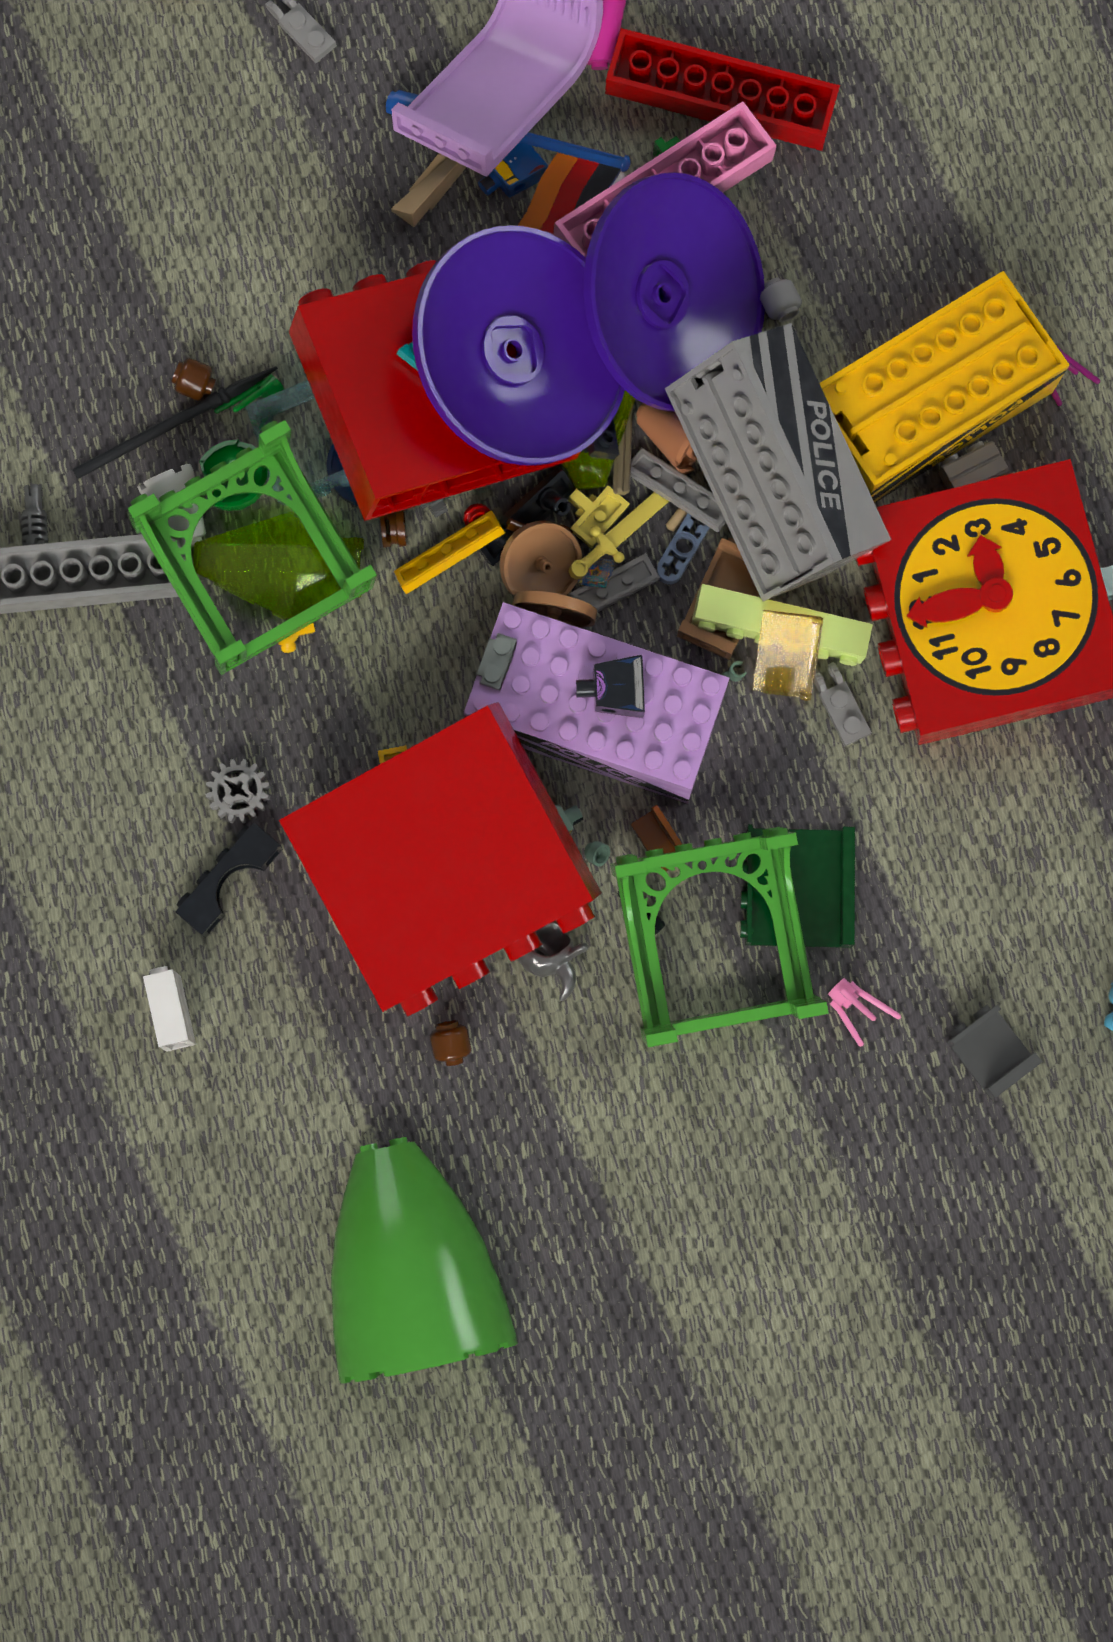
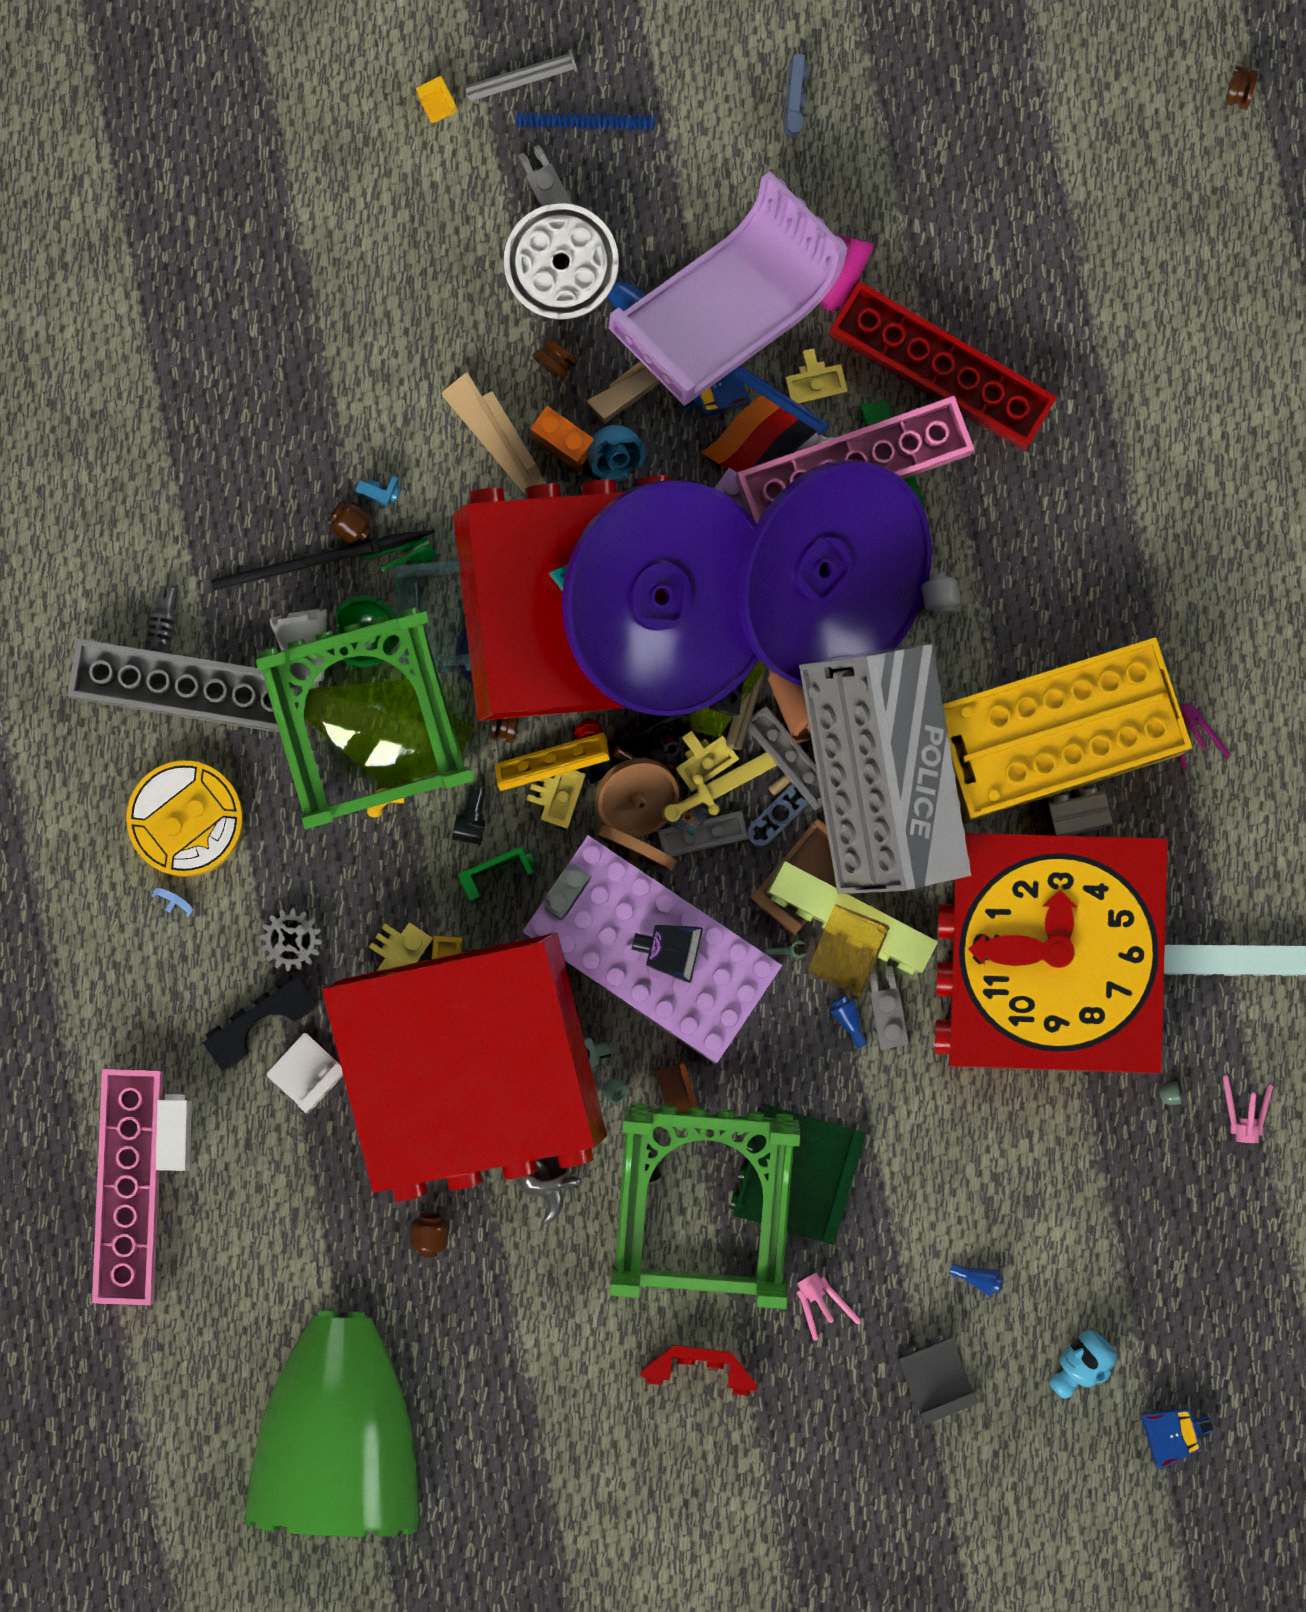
camera: 10 degrees right, 5 degrees up
(103, 702) = (185, 818): none -> piece
(112, 783) = (174, 899): none -> light blue piece
(136, 1077) = (127, 1188): none -> bright pink brick
(210, 346) = (374, 491): none -> dark azure bracket
(287, 916) = (306, 1073): none -> white bracket
(303, 254) = (494, 430): none -> tan wedge
(336, 114) = (568, 291): none -> white brick
(350, 177) = (554, 358): none -> reddish brown wheel
(356, 762) = (401, 948): none -> light yellow hinge
(376, 245) = (561, 438): none -> orange panel
(384, 633) = (470, 822): none -> black pin
(417, 663) = (467, 877): none -> green panel
(428, 240) = (615, 452): none -> dark azure cylinder
(463, 585) = (558, 797): none -> light yellow hinge
(606, 134) = (815, 380): none -> light yellow hinge
(795, 1101) = (660, 1368): none -> red slope
(803, 720) = (847, 1015): none -> blue cone
(1011, 941) = (985, 1280): none -> blue cone

